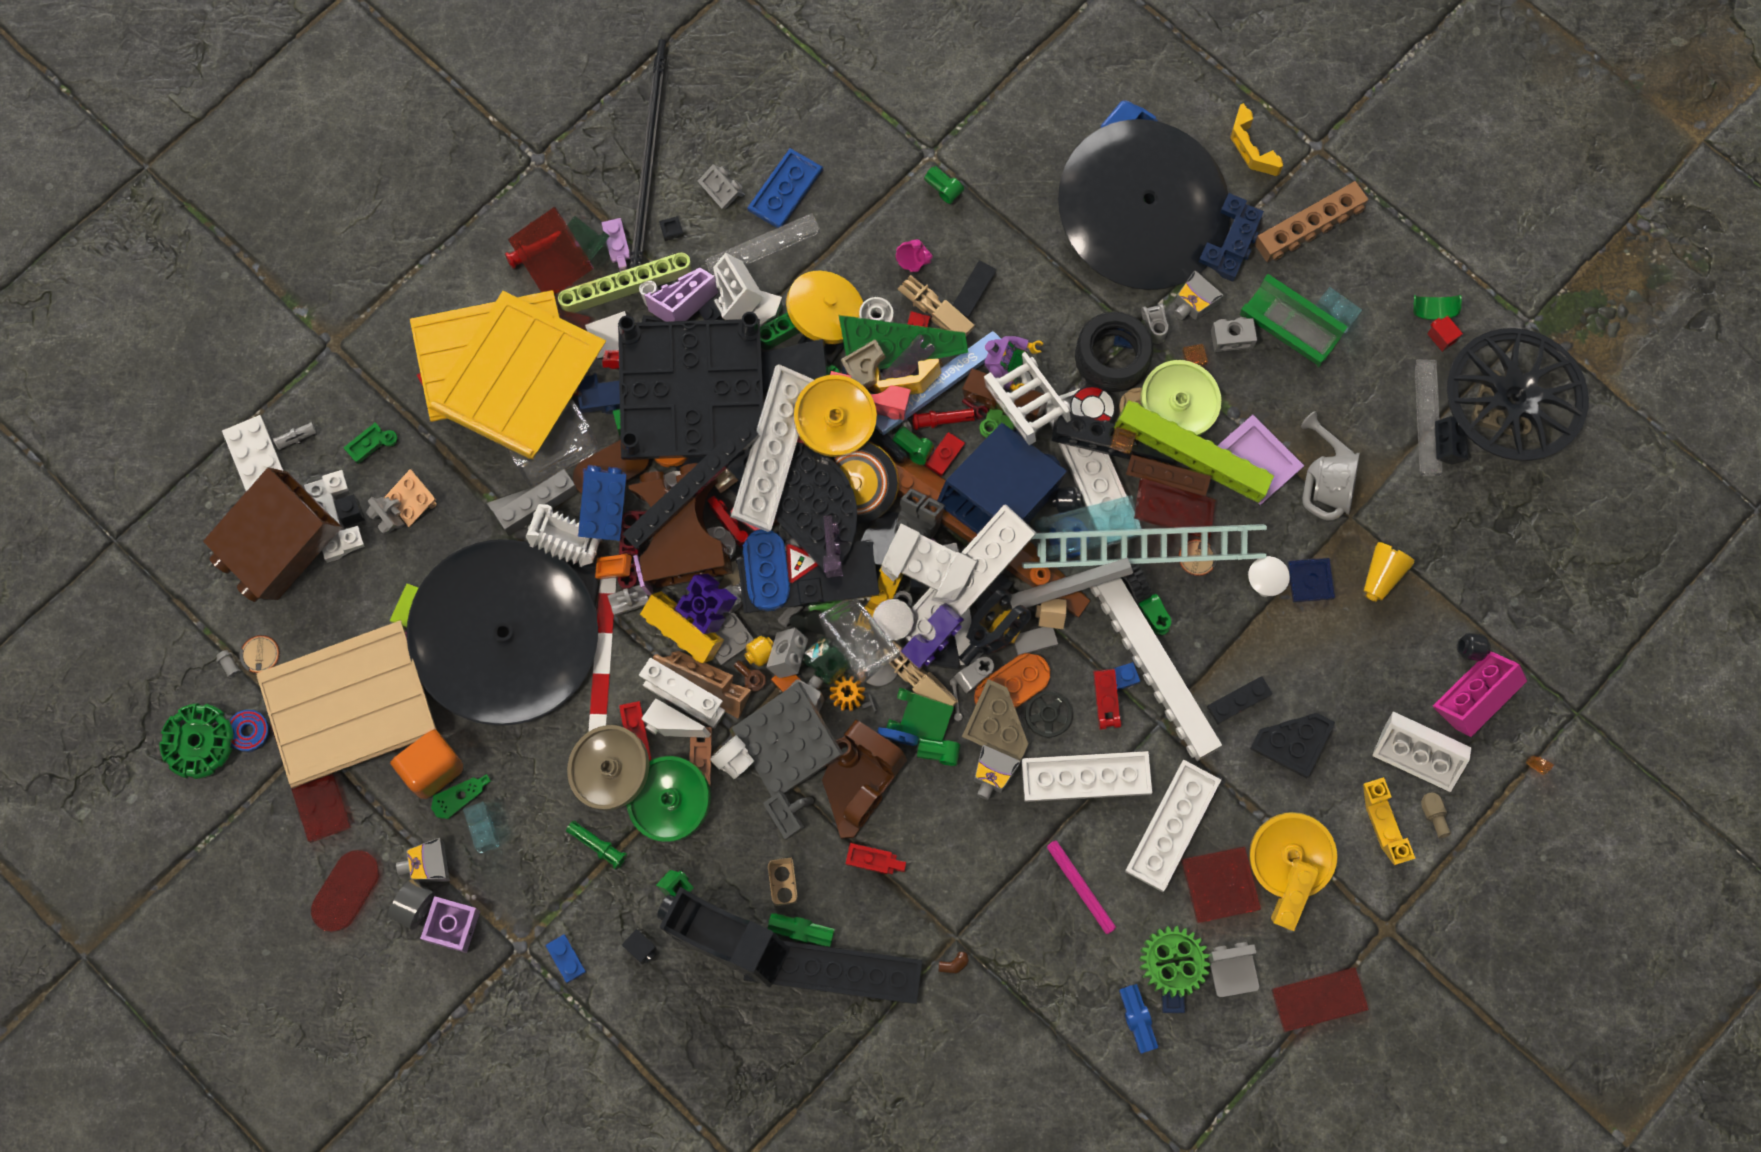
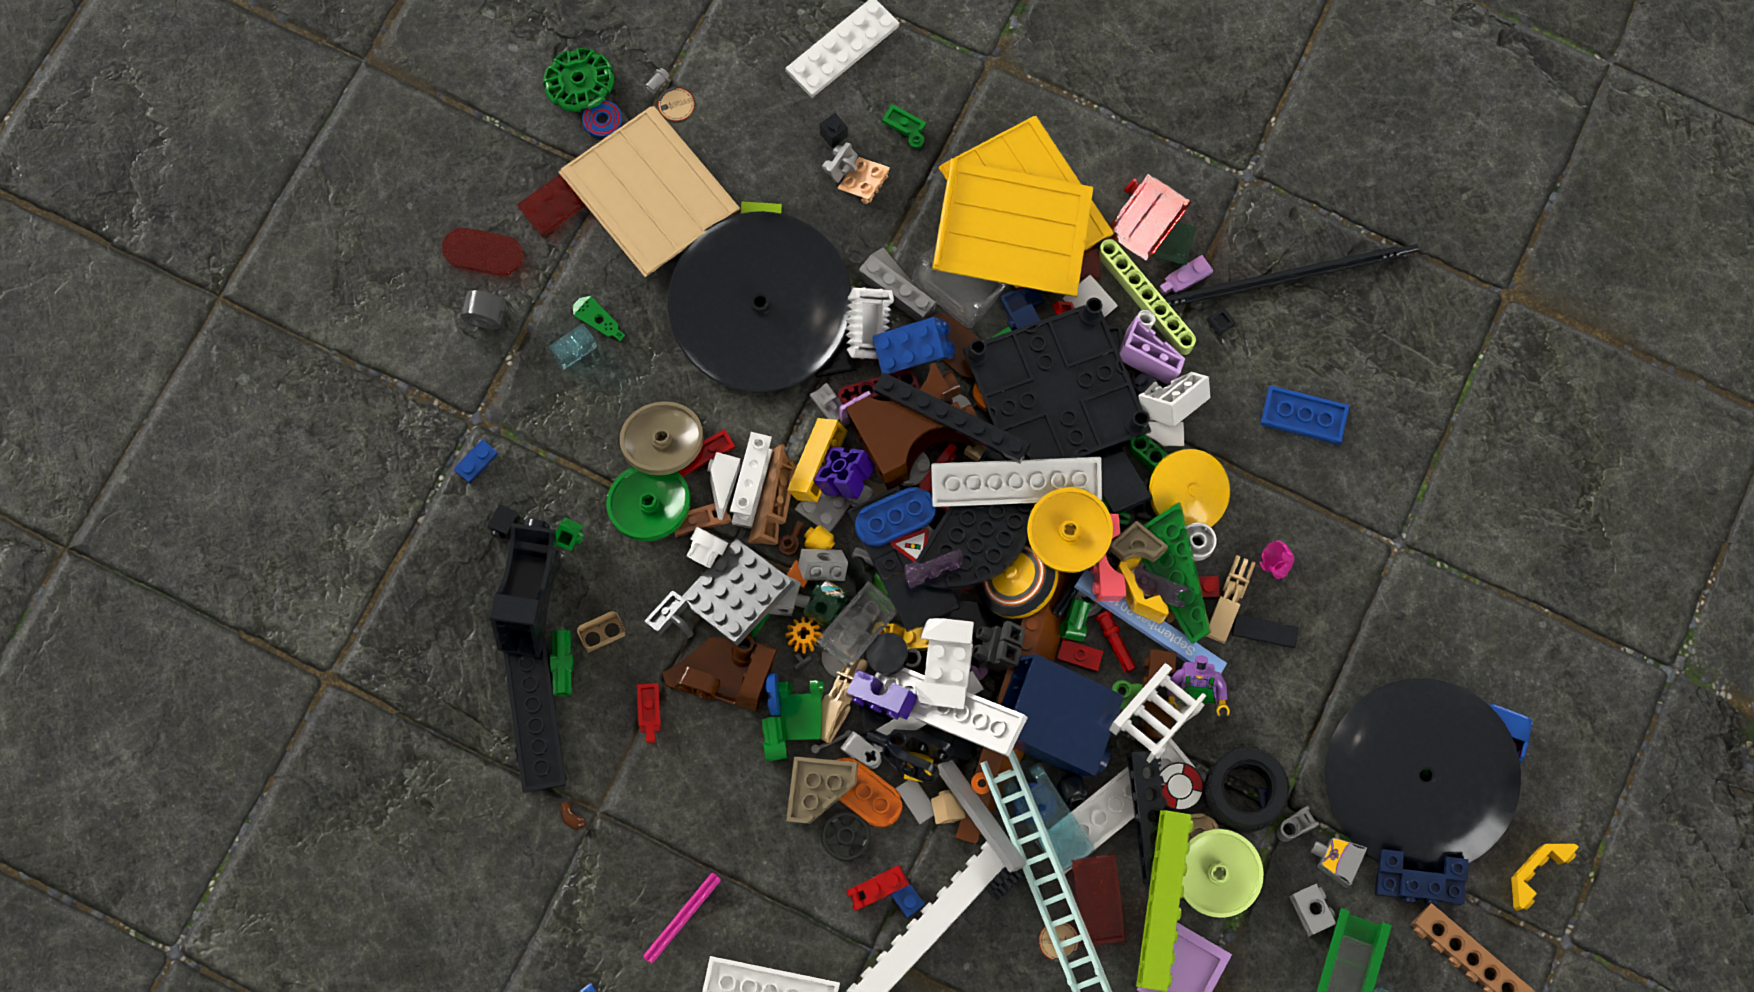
camera: 70 degrees right, 0 degrees up
(270, 535) = (783, 70): reddish brown brick -> none
(294, 436) = (890, 59): light grey pin -> none
(324, 492) = (806, 123): white bracket -> none
(426, 862) = (527, 310): light grey torso -> none
(427, 765) = (613, 278): orange piece -> none
(450, 924) = (475, 349): lavender brick -> none
(602, 657) = (770, 399): sticker -> none
(603, 850) = (586, 461): green pin -> none
(613, 566) = (855, 378): orange tile -> none
(720, 186) = (1282, 352): light grey bracket -> none
(769, 242) = (1242, 418): clear tile -> none
(947, 187) = (1365, 571): green piece -> none
(976, 409) = (1139, 669): dark red hand -> none
(994, 771) = (769, 798): light grey torso -> none
(1086, 776) = (793, 891): white plate -> none
(1122, 440) = (1147, 822): clear orange plate -> none
(1153, 612) = (983, 910): green piece -> none
(1168, 474) = (1131, 882): reddish brown fence -> none
(1195, 354) = (1275, 876): clear orange plate -> none

